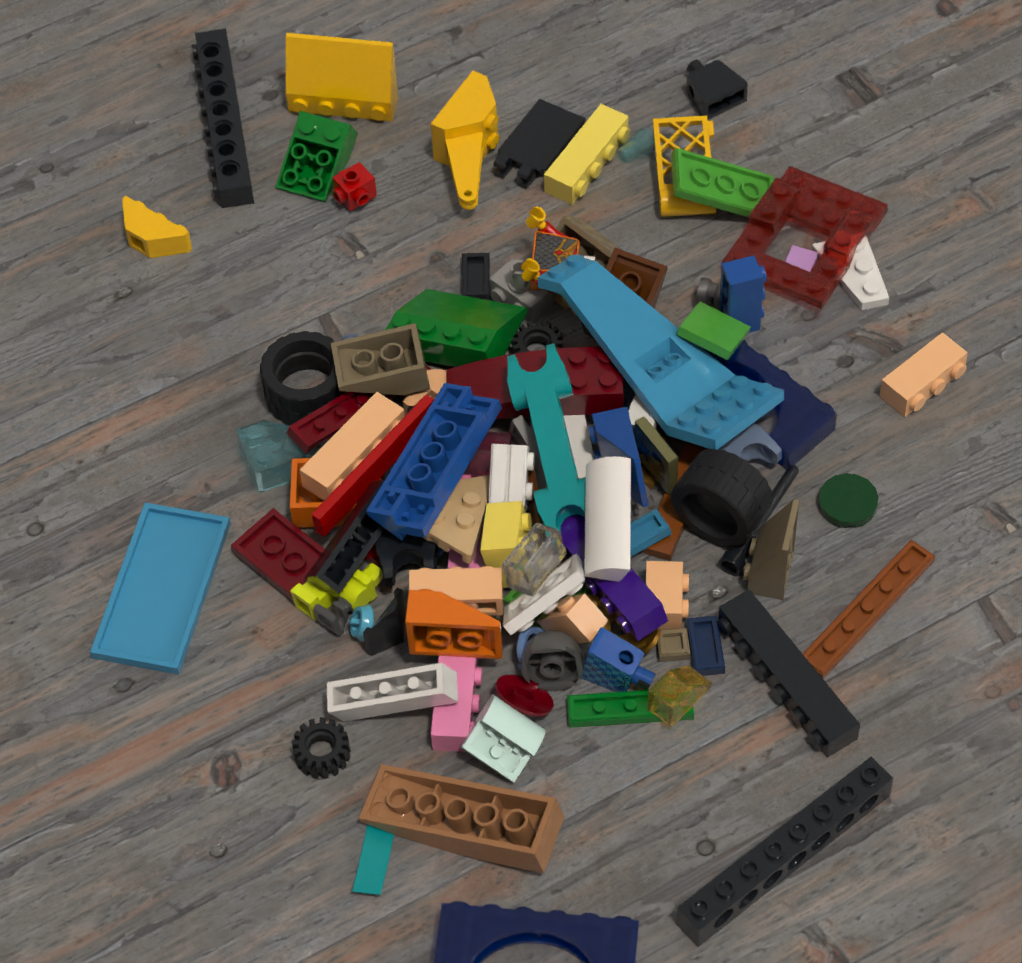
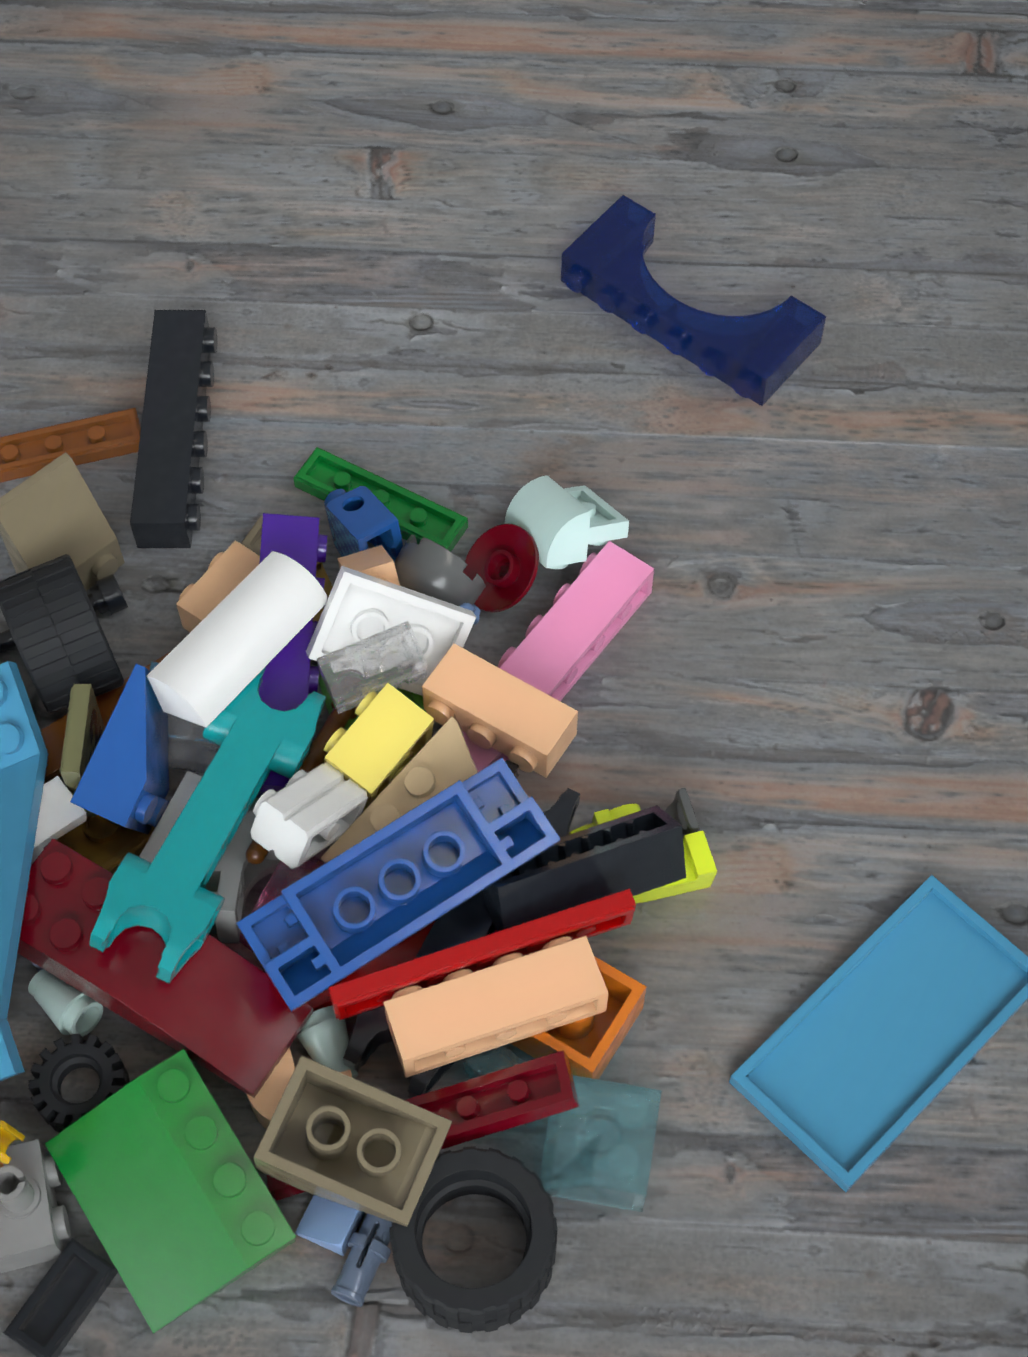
camera: 150 degrees left, 5 degrees up
(278, 551) = (688, 964): dark red plate -> none
(321, 732) = (797, 632): black tyre -> none
(361, 619) = (640, 781): medium azure hat -> none
(373, 861) = (789, 519): teal sticker -> none
(388, 629) = (611, 752): black slope -> none
(392, 692) = (672, 632): white brick -> none
(449, 627) = (553, 642): orange slope -> none
(465, 817) = (674, 468): medium nougat slope -> none
(677, 693) = (318, 457): clear yellow slope -> none
(705, 645) = (231, 518): dark blue tile -> none
(784, 851) = (345, 251): black brick -> none

